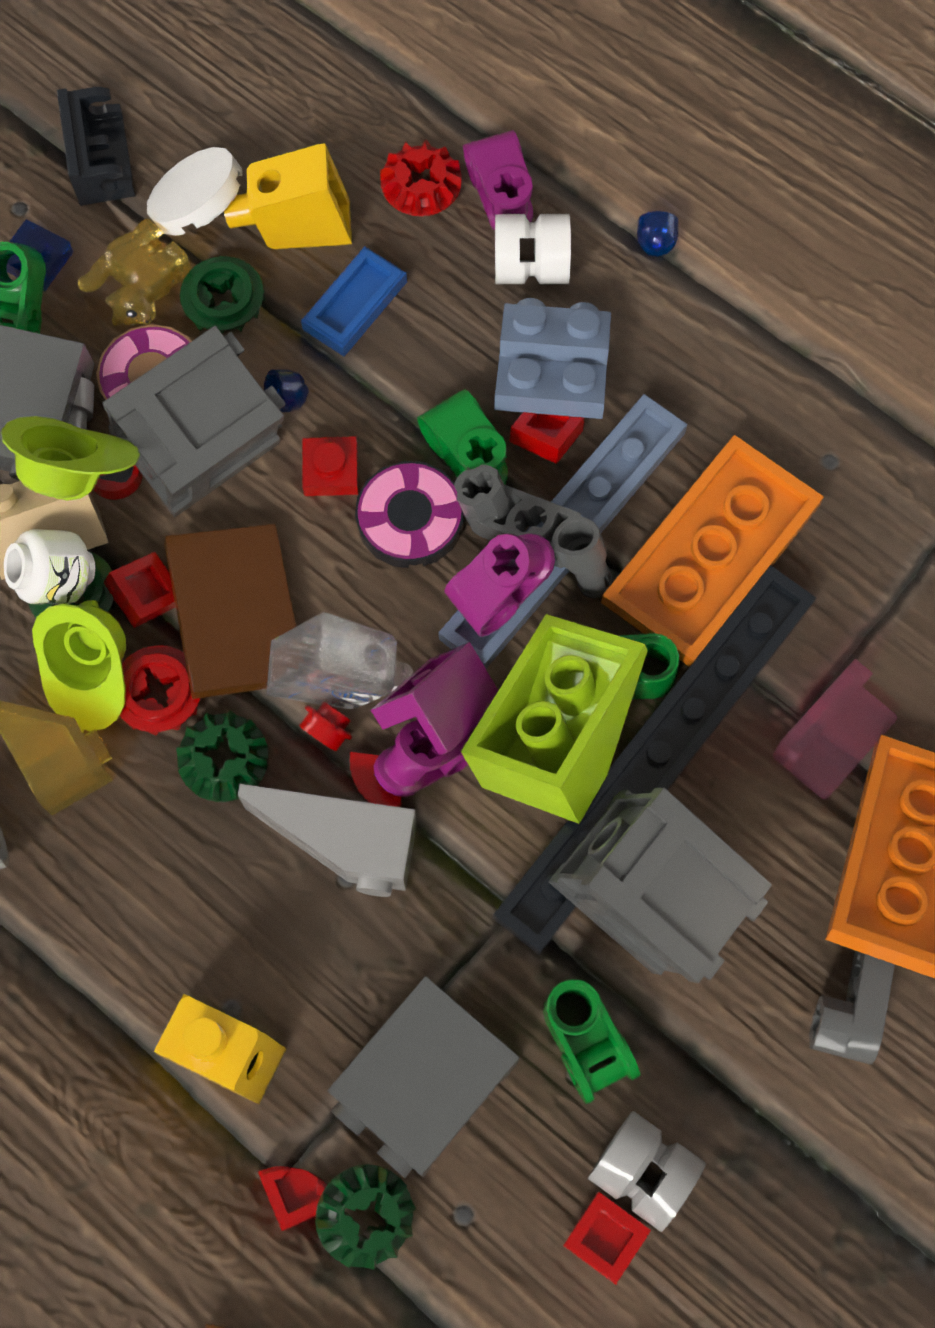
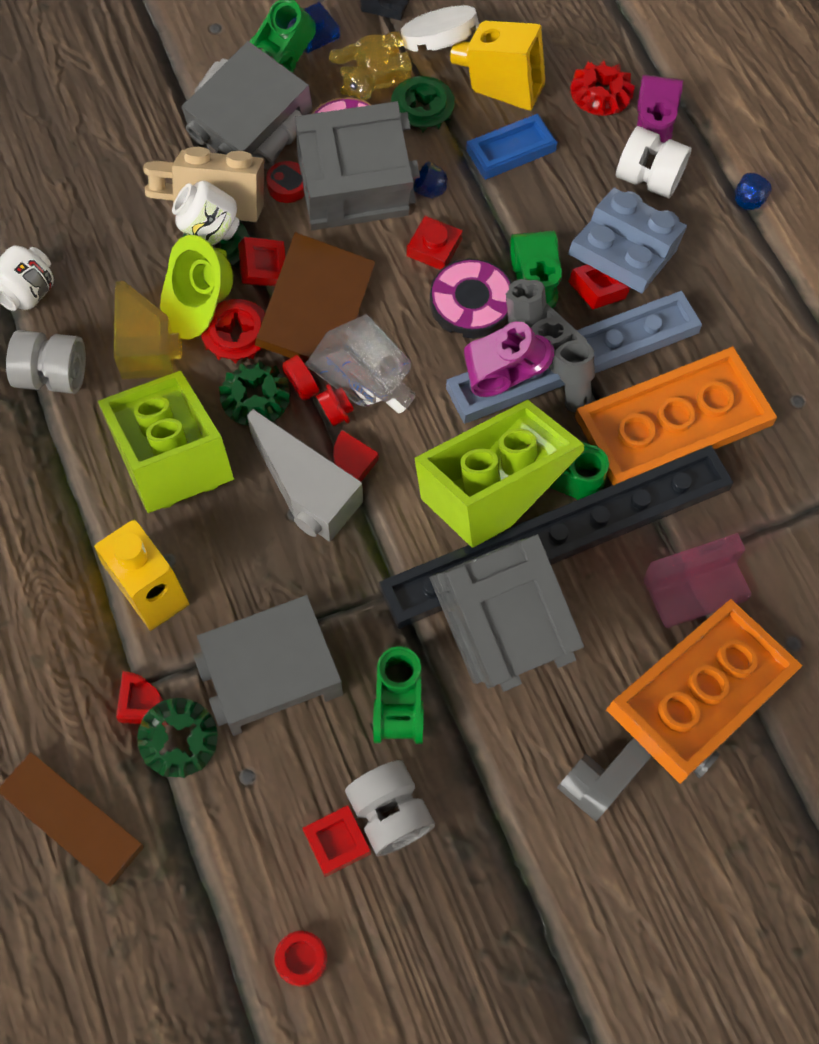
camera: 25 degrees right, 5 degrees down
(63, 458) = (248, 141): lime piece -> none
(152, 868) = (166, 441): none -> lime slope
(268, 712) = (300, 378): none -> red tile
(415, 762) = (391, 450): magenta piece -> none
(444, 696) = (422, 419): magenta panel -> none

